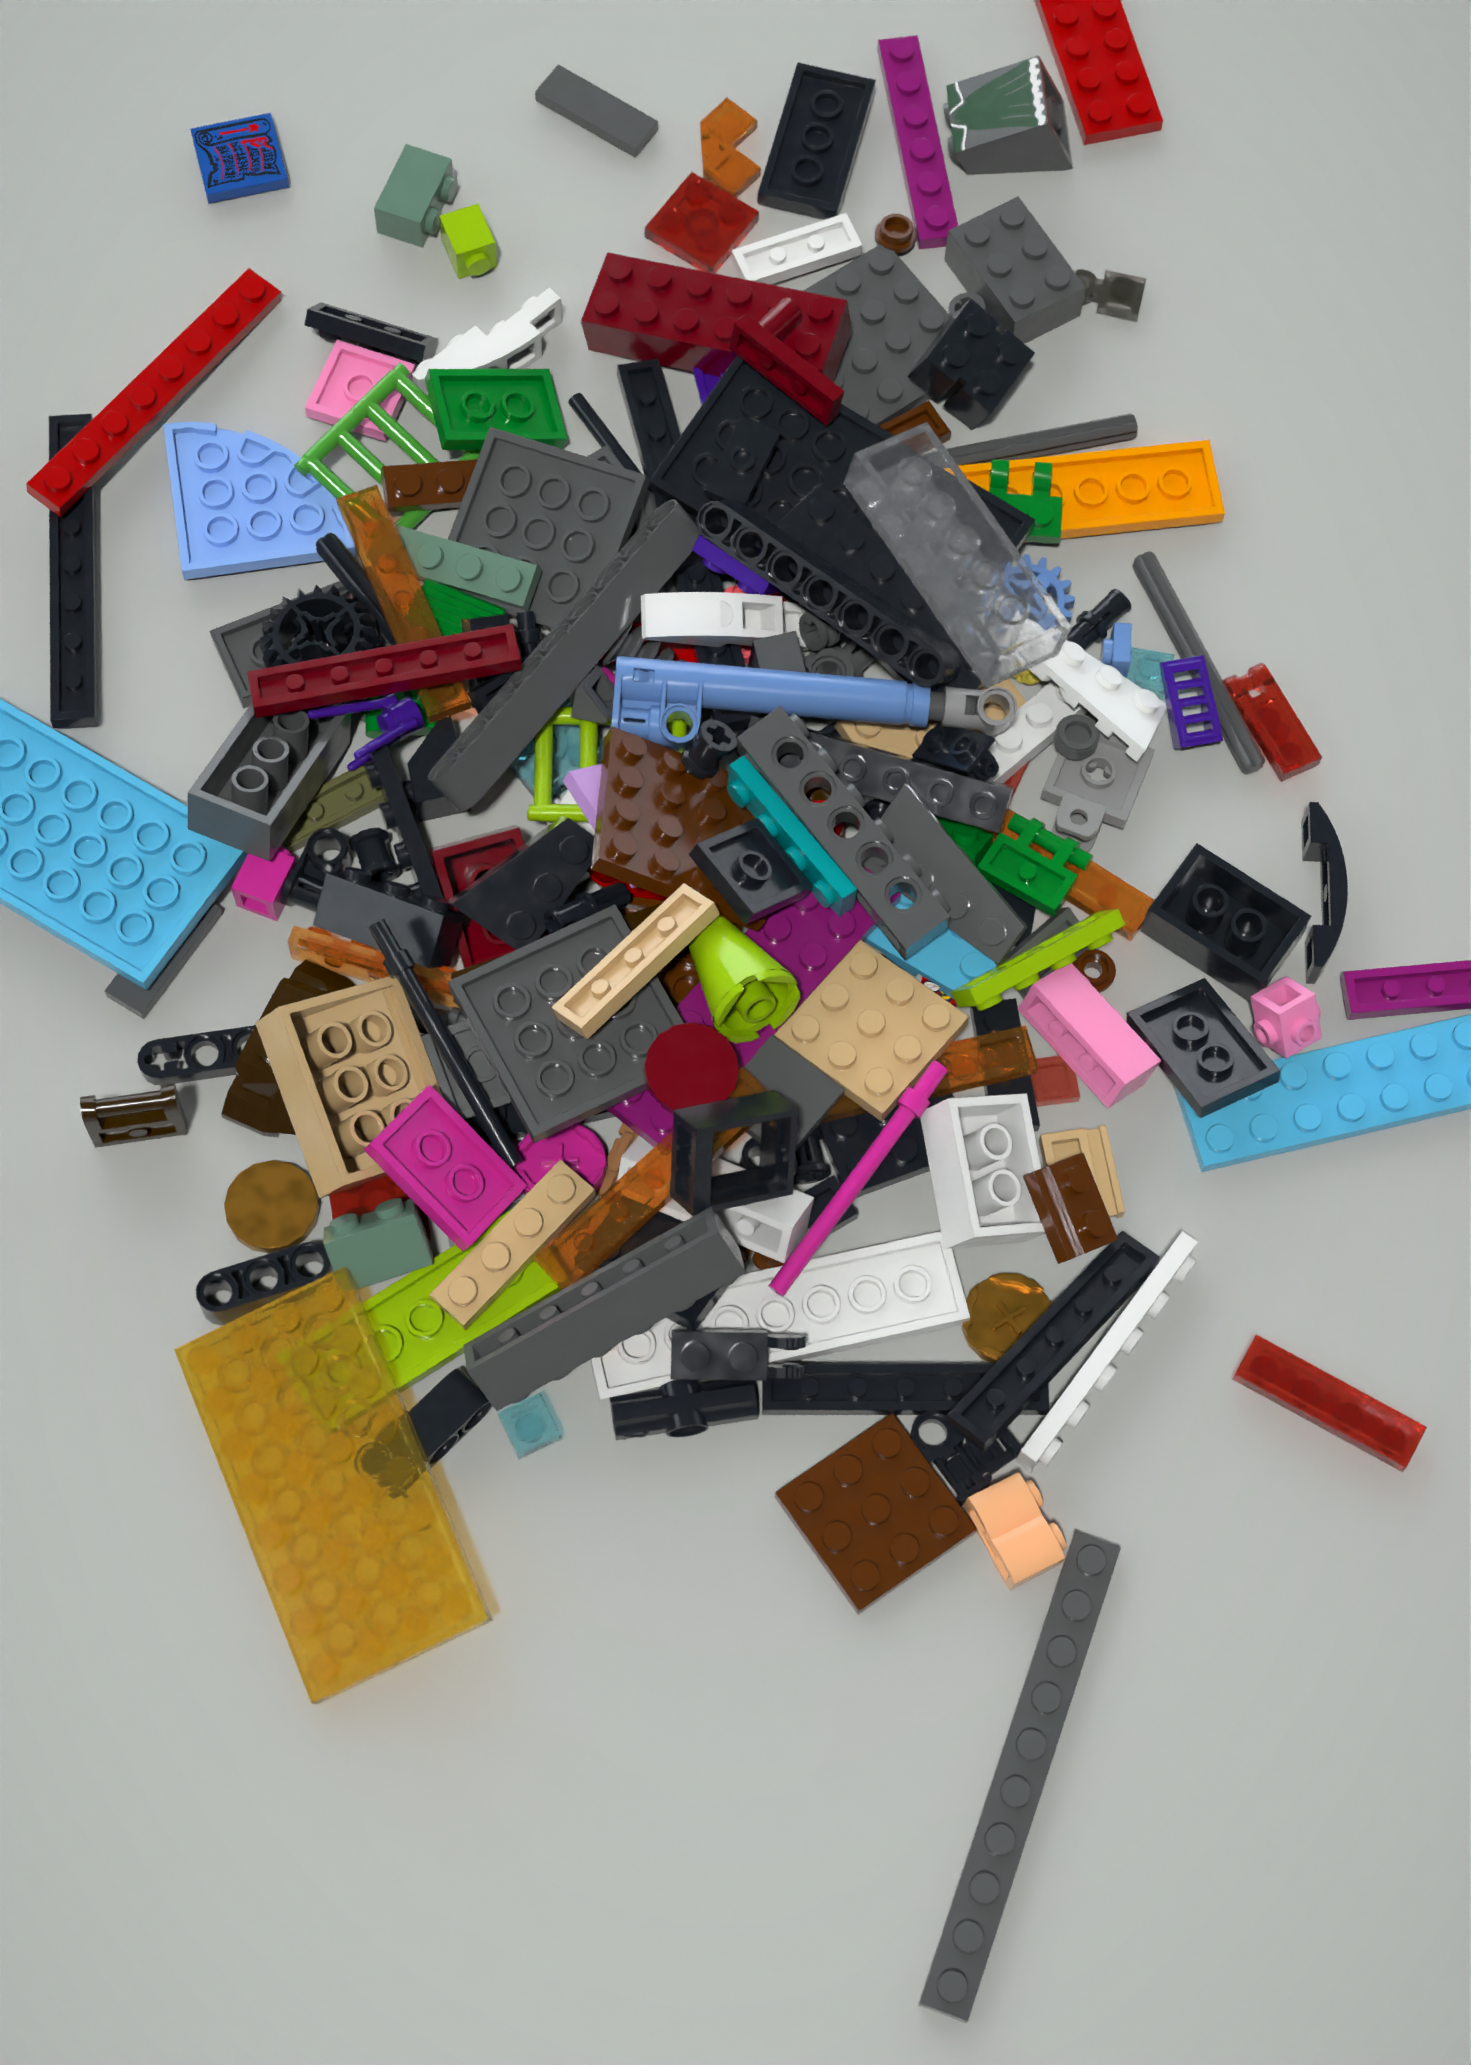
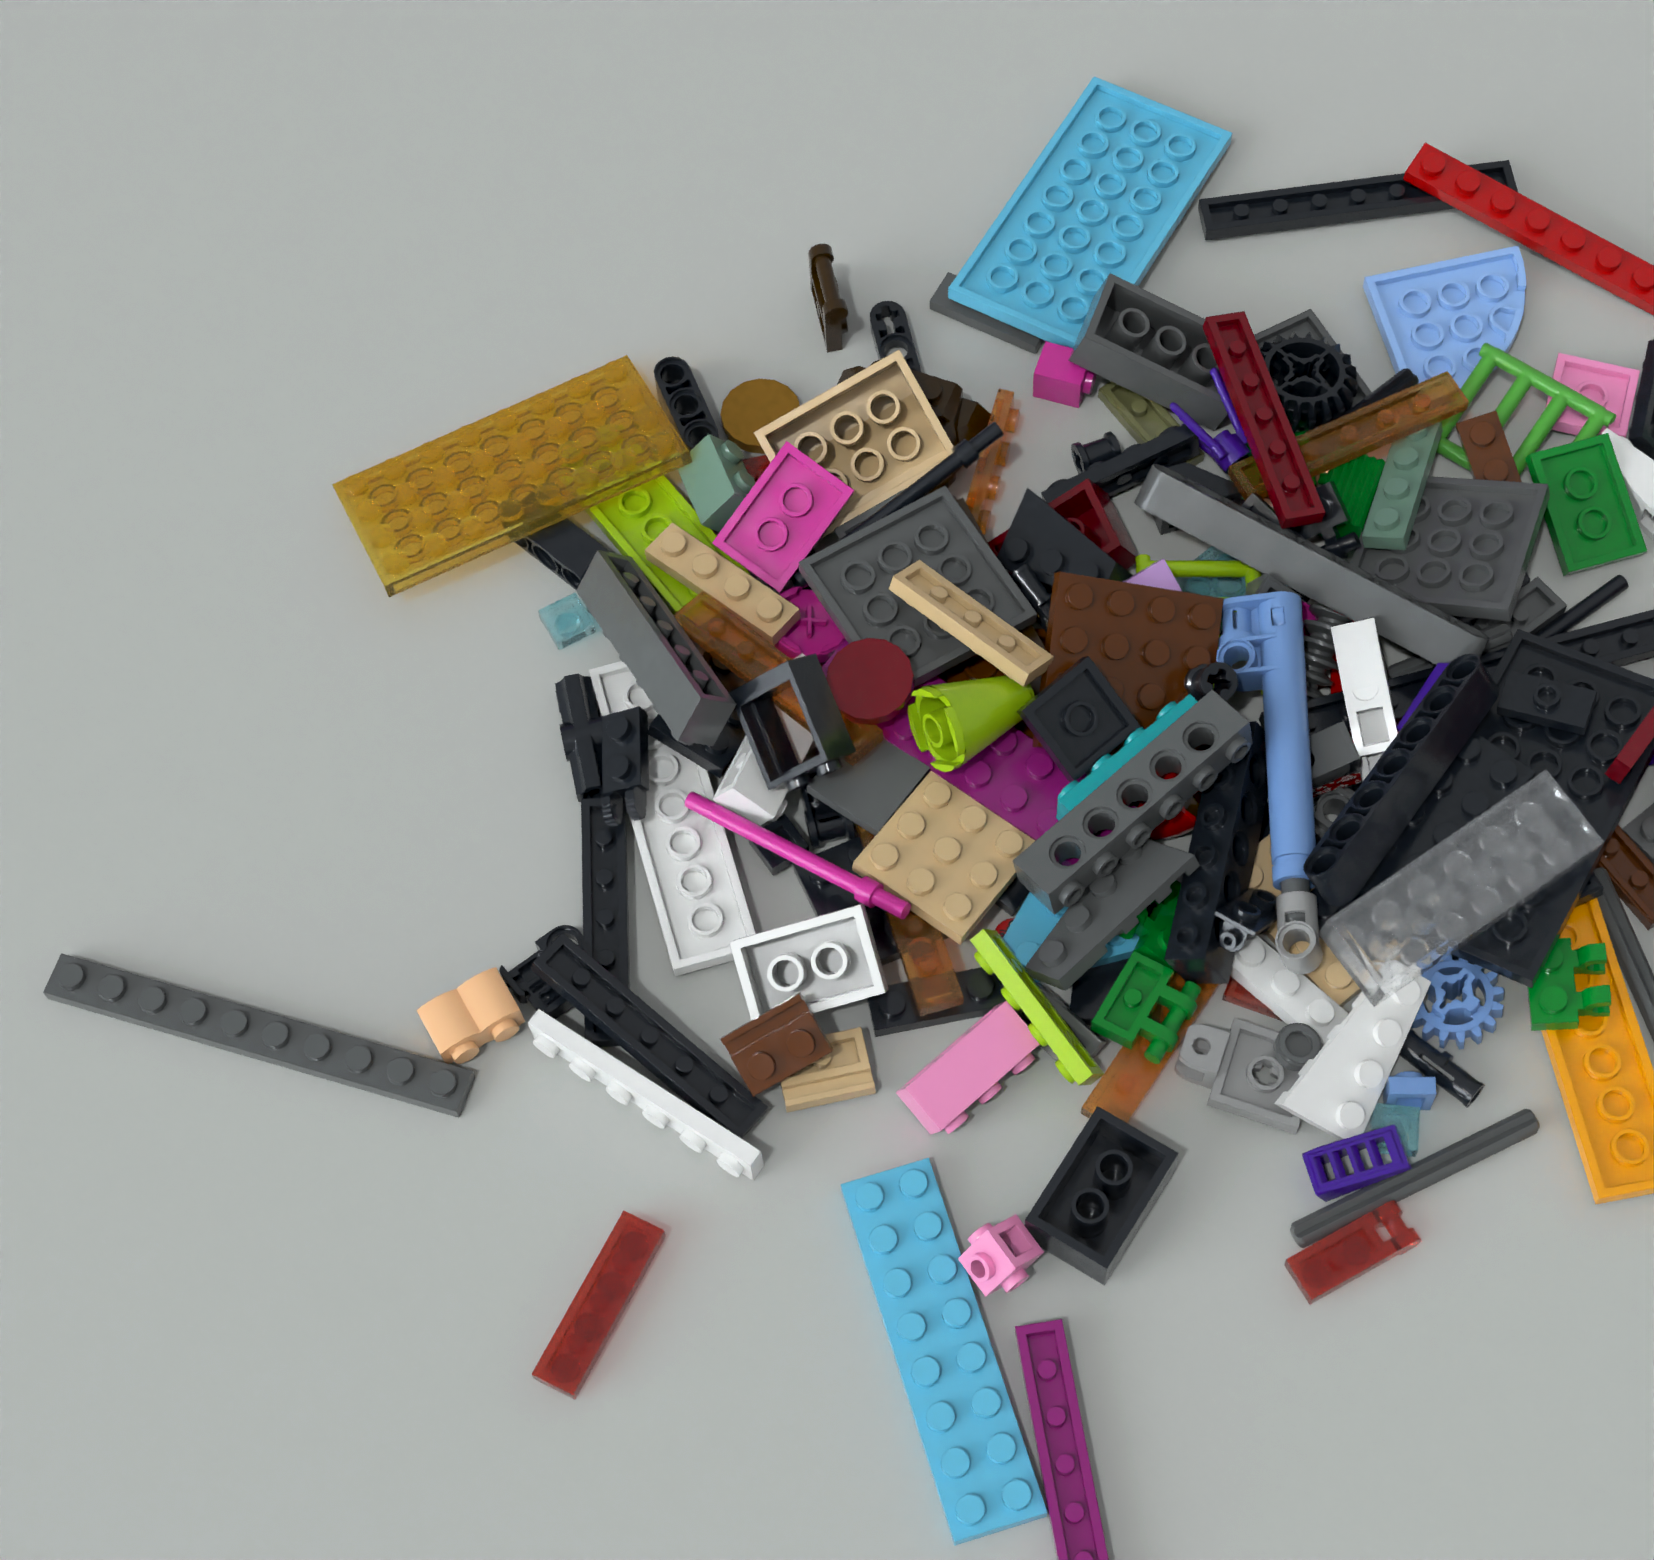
camera: 95 degrees right, 5 degrees down
(307, 878) = (1073, 414): black piece -> none
(422, 926) = (1025, 458): black brick -> none
(875, 1513) = (492, 901): reddish brown plate -> none
(1001, 1313) = (687, 1003): pearl gold tile -> none
(1054, 1082) = (923, 1043): clear red tile -> none
(1100, 961) = (1043, 1066): reddish brown plate -> none
(1203, 1047) = (960, 1174): black plate -> none
(1323, 846) = (1089, 1300): black slope -> none

